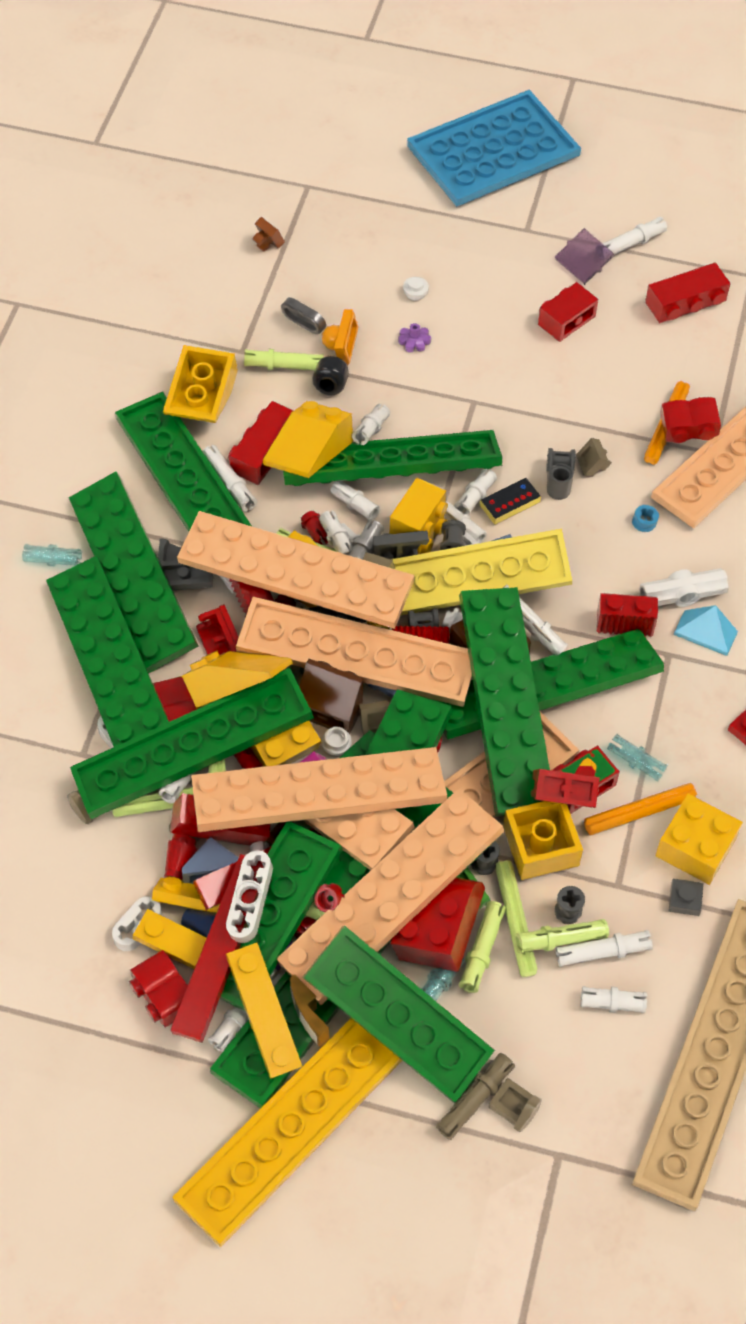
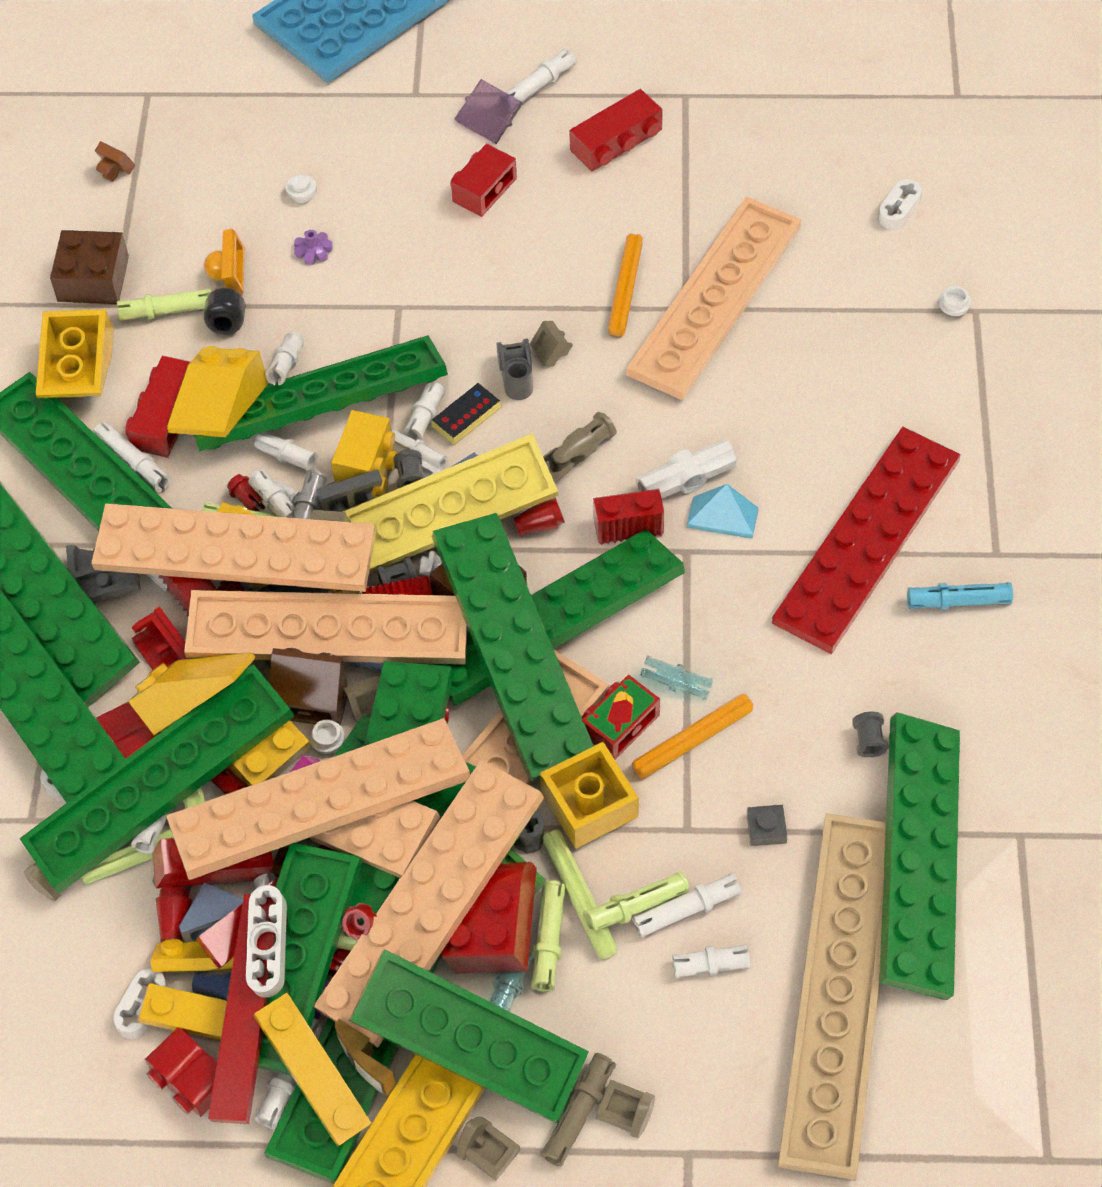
camera: 10 degrees left, 0 degrees up
(229, 316) = (89, 267): none -> reddish brown brick
(303, 315) = (176, 247): flat silver tile -> none
(392, 1109) = (486, 1147): none -> dark tan tile
(552, 600) = (539, 518): none -> red cone
(555, 644) = (554, 569): white pin -> none
(565, 788) = (602, 731): red hinge -> none
(576, 898) = (641, 854): dark grey bush -> none
(599, 547) = (579, 445): none -> dark tan piece
(644, 525) = (625, 409): dark azure bush -> none
(690, 419) = (651, 276): red brick -> none
(698, 839) = (766, 755): yellow brick -> none

